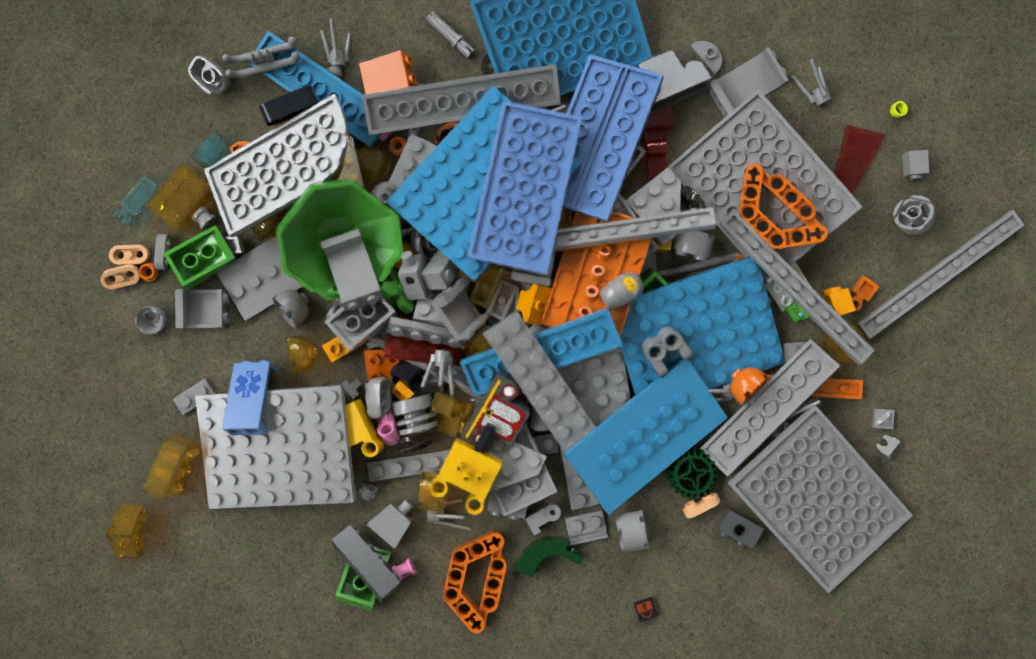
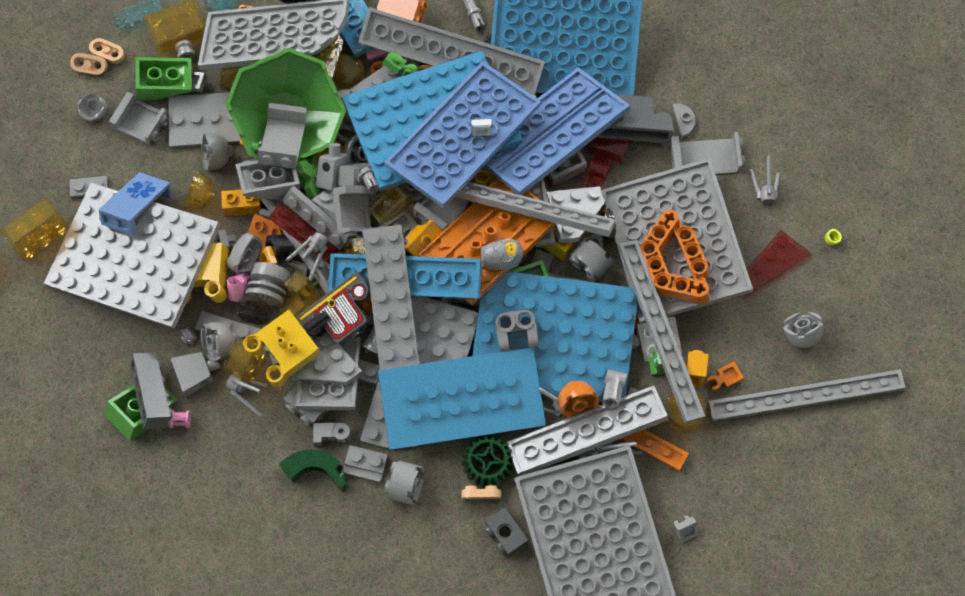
camera: 25 degrees right, 20 degrees down
(142, 272) = (111, 67): orange plate -> none
(162, 245) = (129, 66): light grey beam -> none
(400, 487) = (218, 340): none -> light grey cylinder
(417, 139) = (397, 64): none -> bright green plate
(458, 275) = (367, 175): none -> light grey pin
(488, 591) = (213, 450): orange piece -> none
(543, 177) = (481, 127): none -> white tile
(645, 609) = (379, 567): tile -> none
(774, 354) = (614, 384): none -> light grey piece
(883, 418) = (692, 500): light grey tile -> none
(915, 164) = (827, 289): light grey brick -> none

